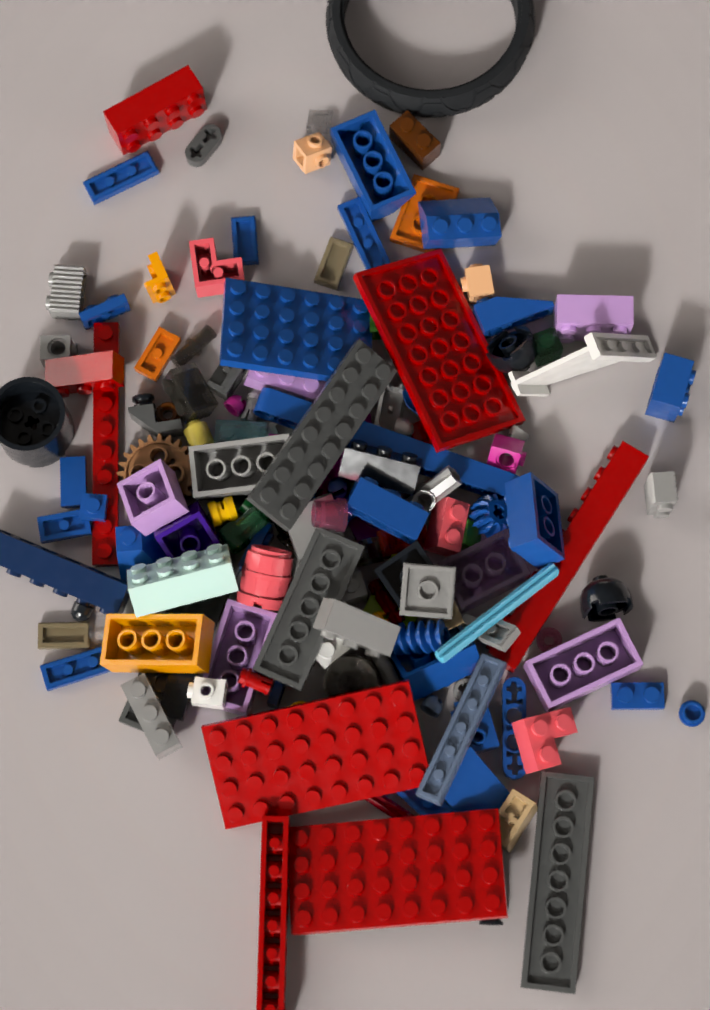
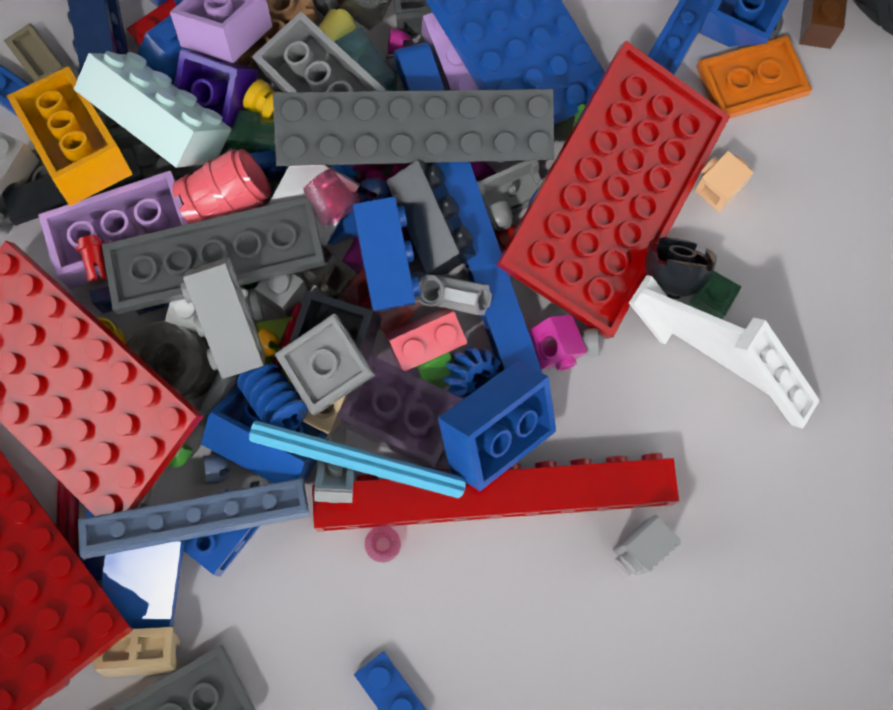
camera: 50 degrees right, 0 degrees up
(81, 612) = (67, 54): black hinge -> none
(215, 699) = (45, 220): white brick -> none
(333, 263) = (631, 26): dark tan tile -> none
(459, 223) = (772, 113): blue slope -> none
(505, 313) = (715, 228): blue slope -> none
(507, 728) = (255, 582): blue beam -> none
(537, 738) = (253, 610): coral brick -> none
(582, 314) = (792, 315): lavender brick -> none
(583, 665) = (375, 603): lavender brick -> none
(604, 598) = (473, 571): black cylinder -> none
(671, 388) = (780, 465): blue brick -> none

